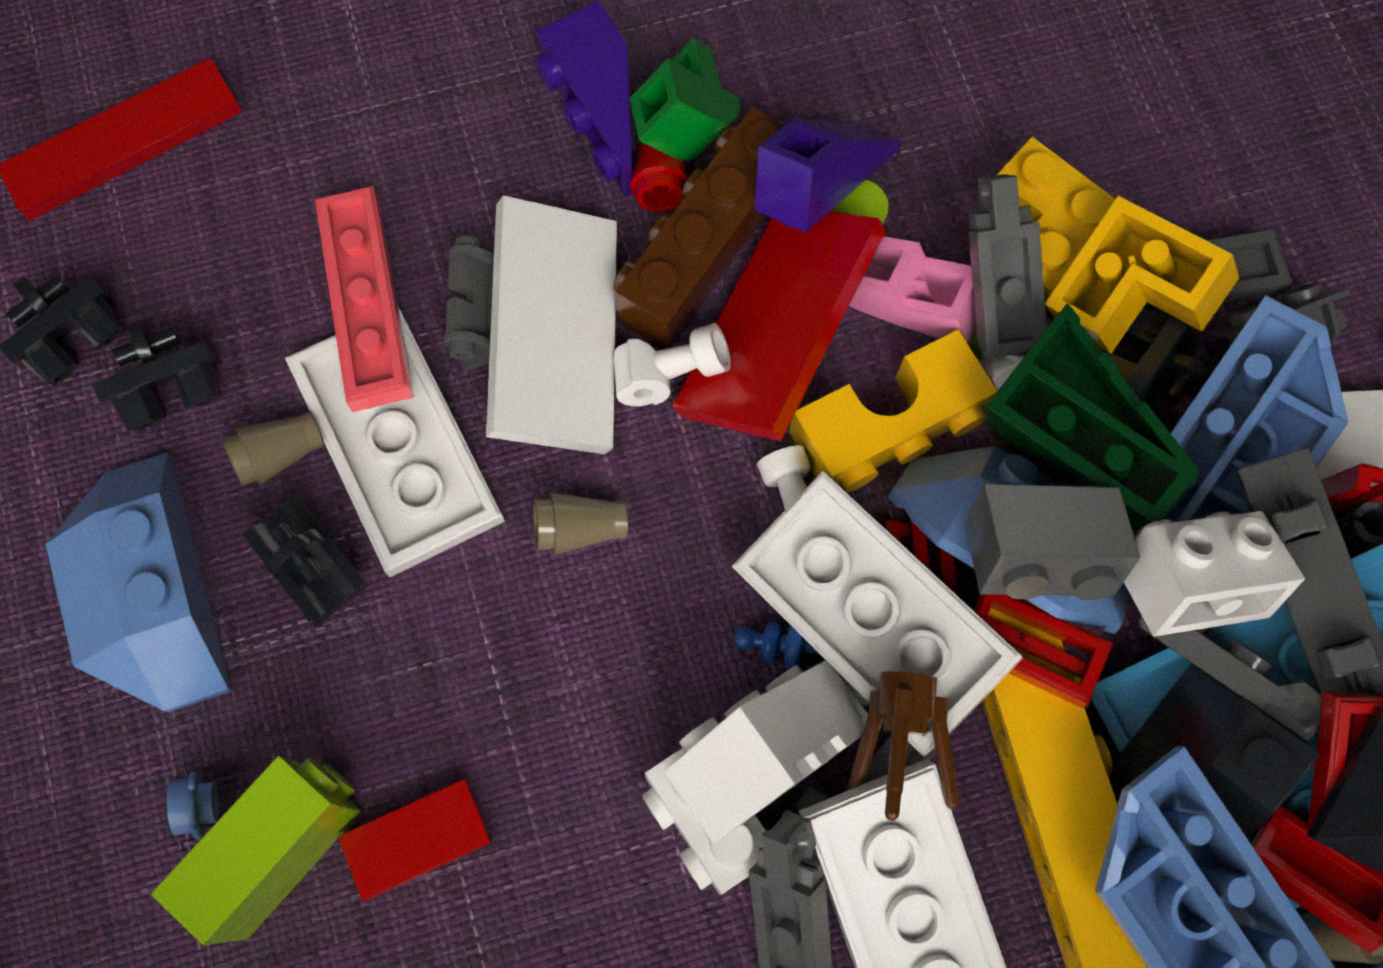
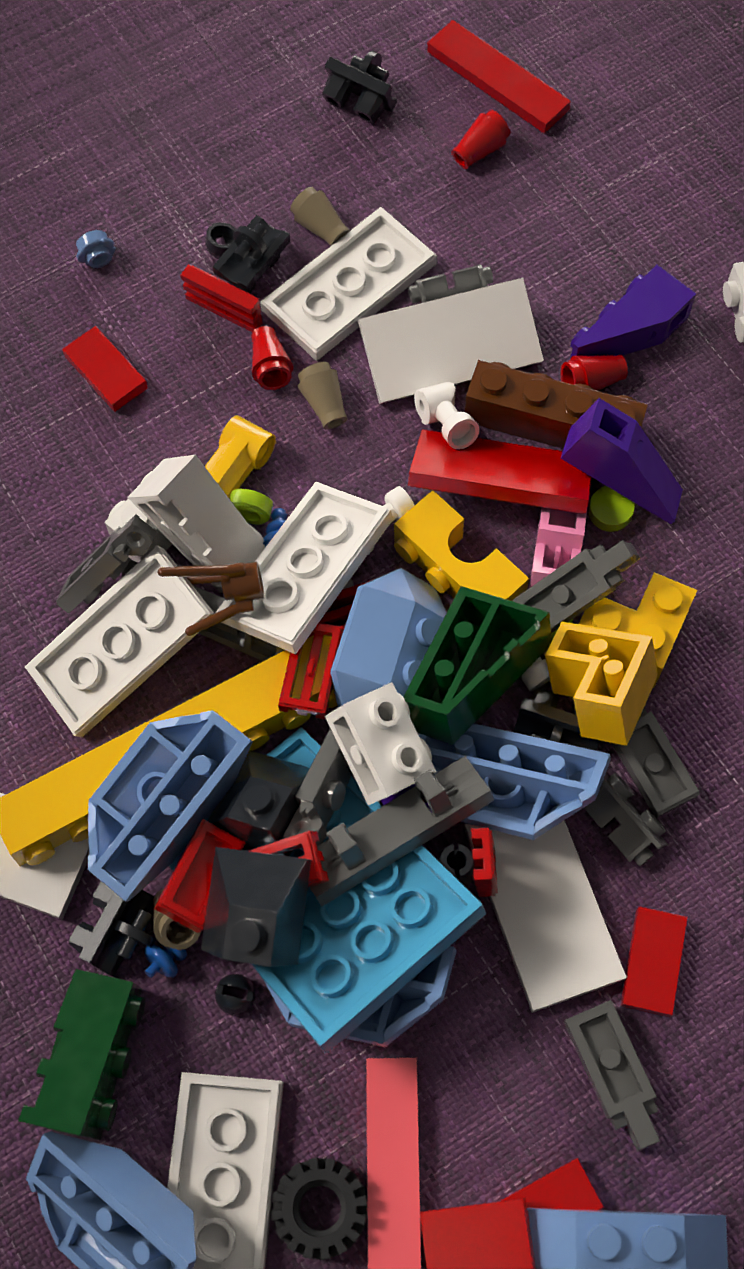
camera: 80 degrees right, 5 degrees down
(133, 389) = (331, 136): black hips -> none
(137, 589) = (214, 182): medium blue wedge -> none
(226, 188) = (483, 138): none -> red cone
(255, 591) = (219, 230): none -> black hinge
(258, 851) = (73, 281): lime brick -> none
(362, 626) = (222, 298): none -> red tile
(363, 300) = (433, 232): coral tile -> none
(491, 583) = (269, 360): none -> red cone
(634, 663) = (239, 451): none -> yellow piece
(684, 104) = (629, 367): green brick -> none
(731, 673) = (252, 505): none -> lime tile
(1050, 541) = (369, 635): dark grey brick -> none

